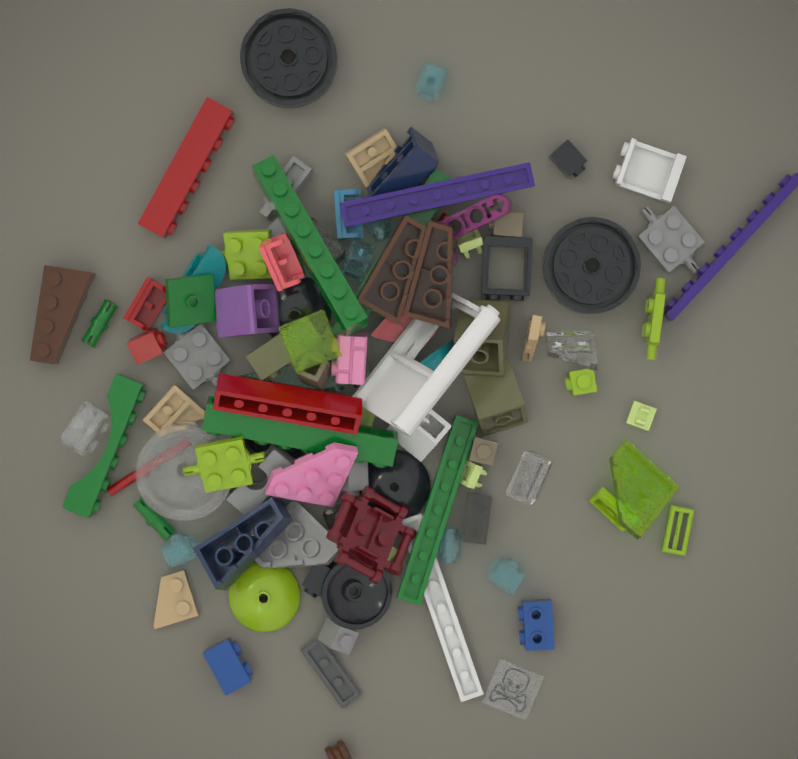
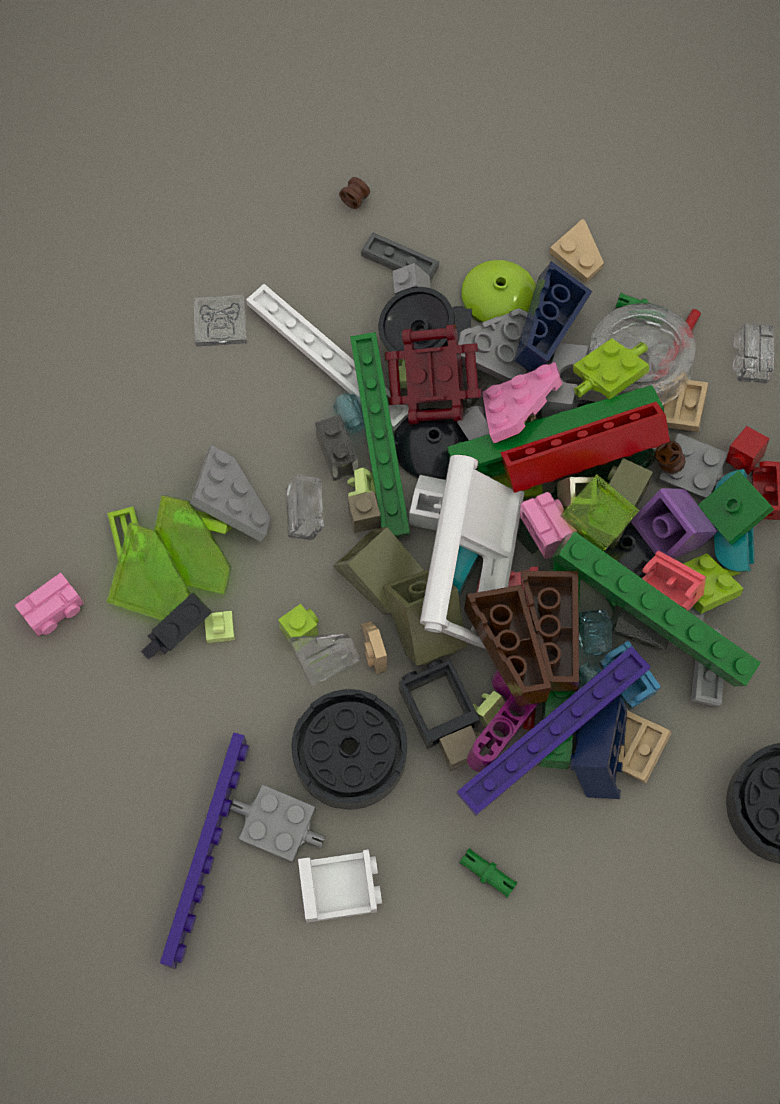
camera: 150 degrees right, 20 degrees down
(123, 399) = (737, 393): green arch -> none
(179, 549) = (604, 289): clear light blue brick -> none
(212, 372) = (665, 453): none -> reddish brown wheel
(228, 665) = (498, 215): blue brick -> none
(431, 81) = (626, 859): clear light blue brick -> none
(506, 575) = (279, 411): clear light blue brick -> none
(535, 124) = (488, 872): none -> green pin
(537, 624) = (225, 382): blue brick -> none
(568, 159) = (432, 850): black brick -> none
(584, 519) = (228, 495): none -> light grey plate
(652, 328) = (258, 731): lime plate -> none
(675, 429) = (177, 625): none -> black hinge
(679, 478) = (146, 575): none -> clear neon green plate
(764, 498) = (50, 605): none -> bright pink brick

